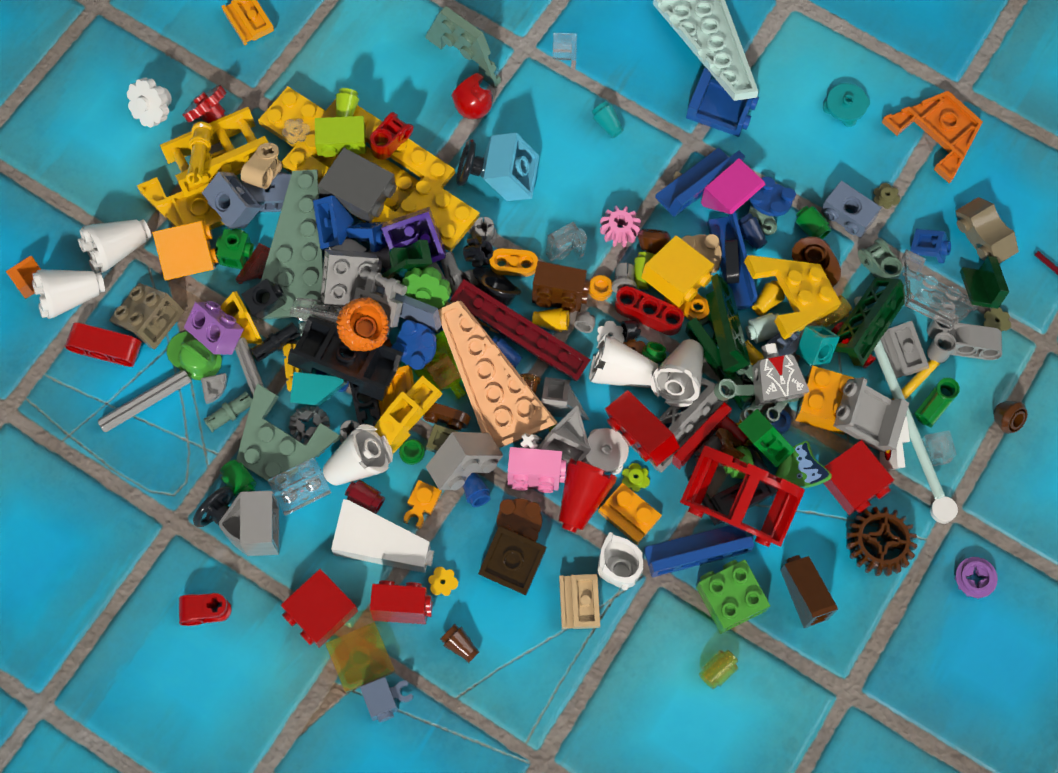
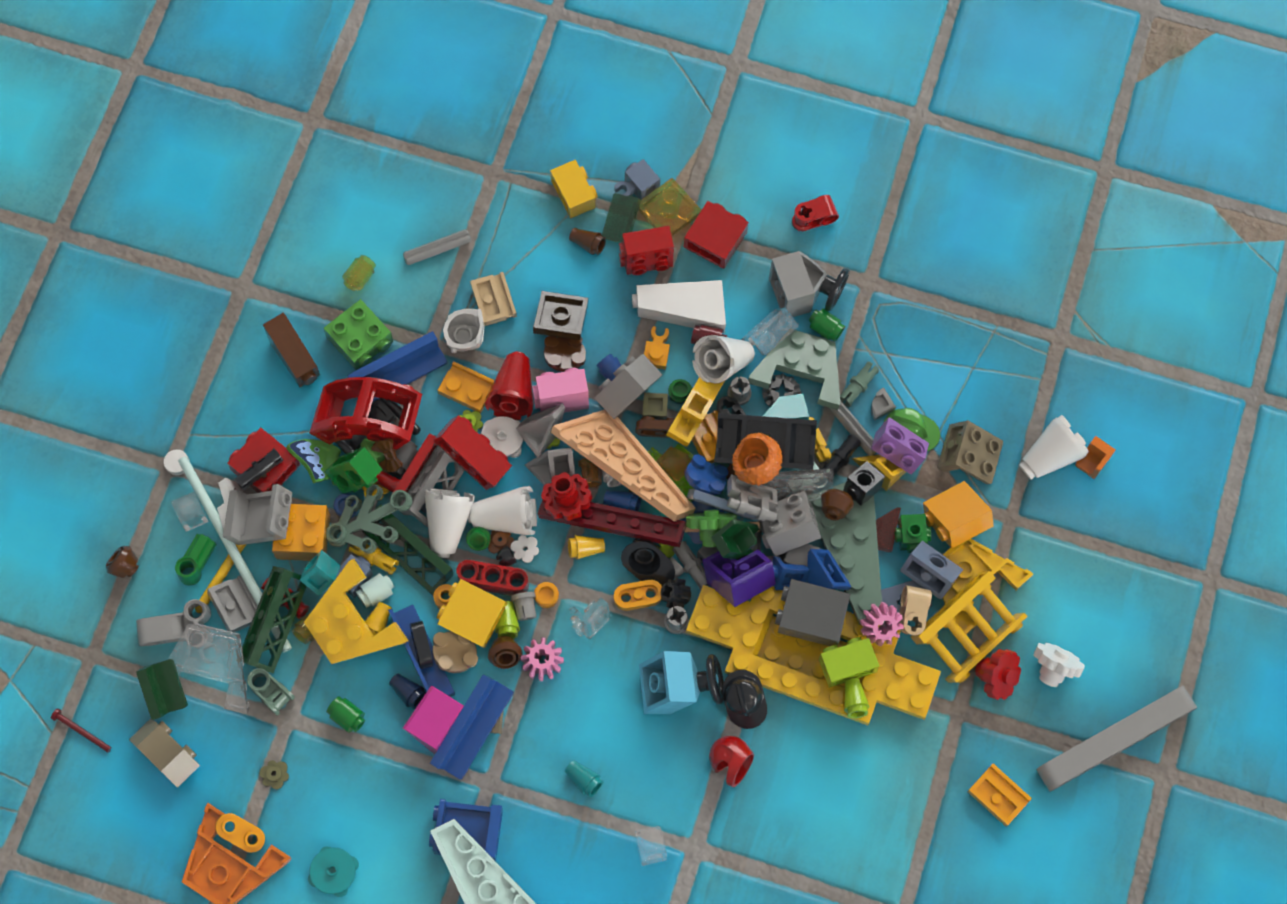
camera: 165 degrees right, 0 degrees up
(103, 344) = (998, 412): red beam -> none
(112, 242) = (1030, 508): white cone -> none
(125, 35) = (1116, 738): none -> light grey beam
(144, 401) = (939, 374): light grey axle -> none
(199, 146) = (984, 615): yellow pin -> none
(295, 135) = (891, 667): clear plant -> none
(298, 156) = (885, 630): none -> bright pink gear
(298, 281) = (836, 504): none -> reddish brown cone
(392, 133) = (798, 680): red piece -> none
(415, 655) = (621, 217): none -> clear green panel
(441, 574) = (614, 283): yellow plant -> none
(444, 143) = (744, 699): none -> black piece
(456, 31) = (770, 809): sand green wing -> none
(458, 708) = (573, 188): none -> yellow brick
(531, 441) = (571, 402): white axle -> none
(558, 360) = (566, 496): none -> red plant
(560, 287) = (584, 570): reddish brown brick -> none
(585, 322) = (552, 554): light grey hinge -> none
(626, 681) = (436, 247): none -> light grey axle
(727, 326) = (411, 570): dark green fence -> none
(766, 222) = (395, 709): sand green arm -> none
(773, 198) = (389, 735): blue piece -> none
(777, 377) = (354, 524): light grey torso -> none
(819, 252) = (336, 677): reddish brown piece -> none
(844, 198) = (321, 750): sand blue brick -> none
(863, 459) = (258, 469): none -> black pin
(893, 542) = (212, 413): reddish brown gear -> none
(922, 148) = (240, 833): none -> light orange plate
(931, 243) = (220, 723): blue bracket -> none
(984, 570) = (130, 403): medium lavender gear -> none
(999, 316) = (137, 660): olive plant -> none

